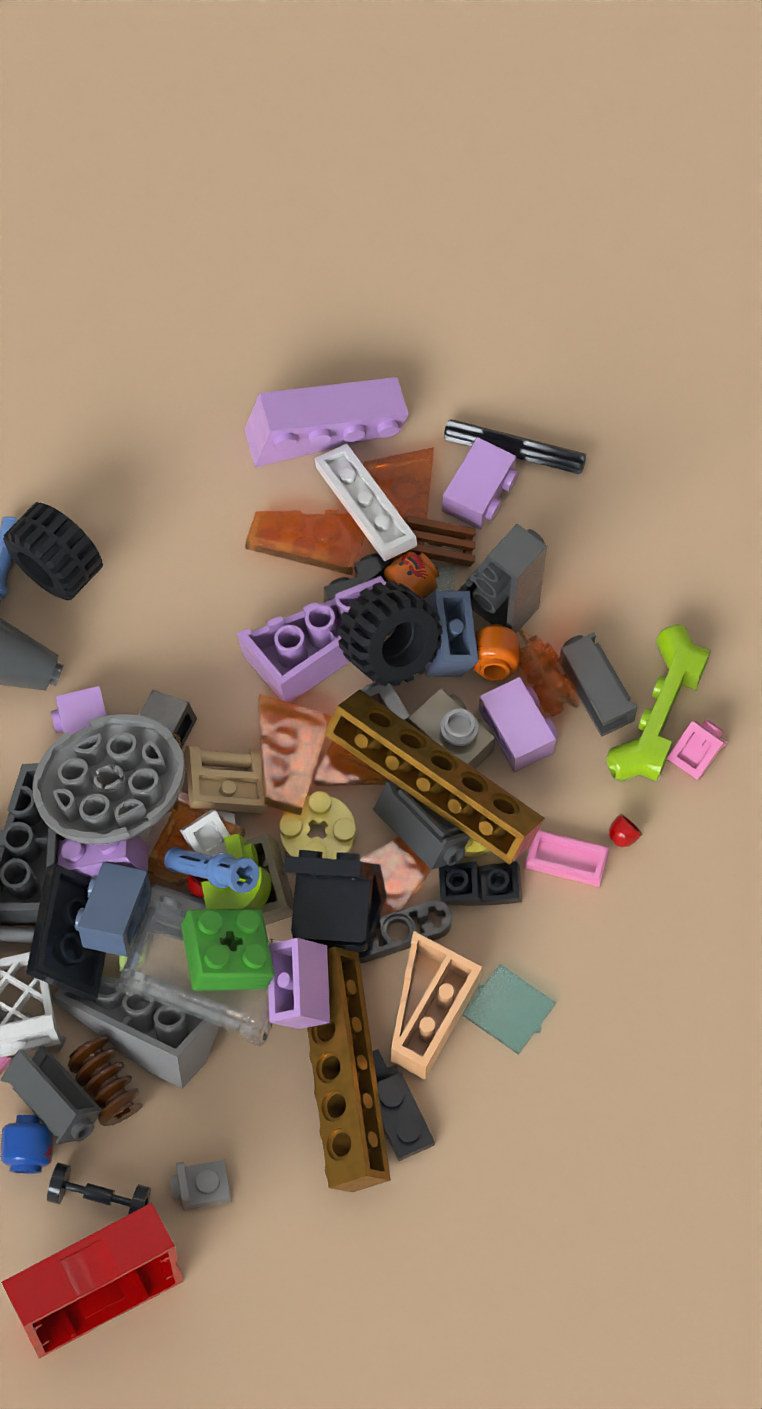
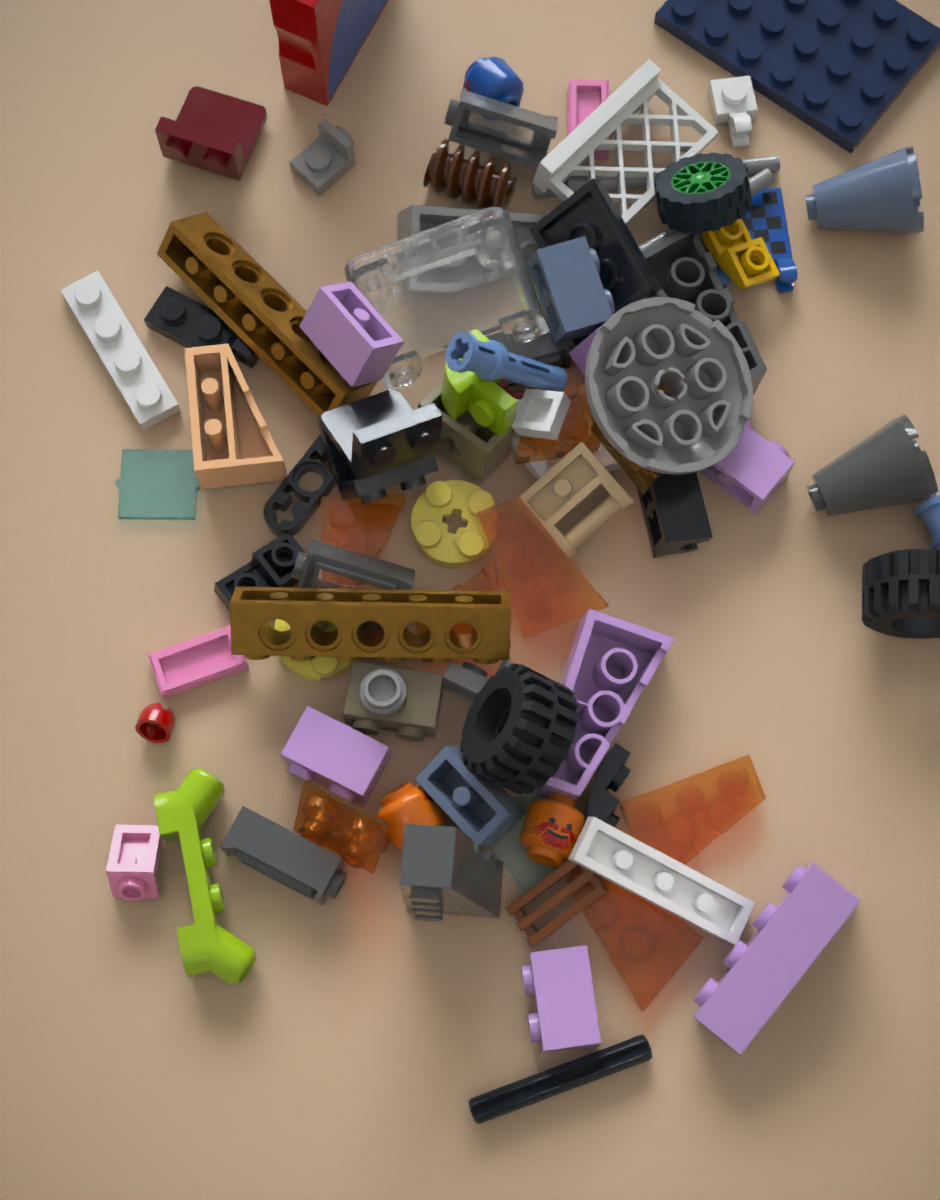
camera: 145 degrees right, 5 degrees up
(60, 1183) = (441, 80): black wheel -> none
(207, 942) = (432, 274): bright green brick -> none
(272, 1266) = (212, 132): none -> dark red bracket
(468, 1135) = (120, 350): none -> white plate

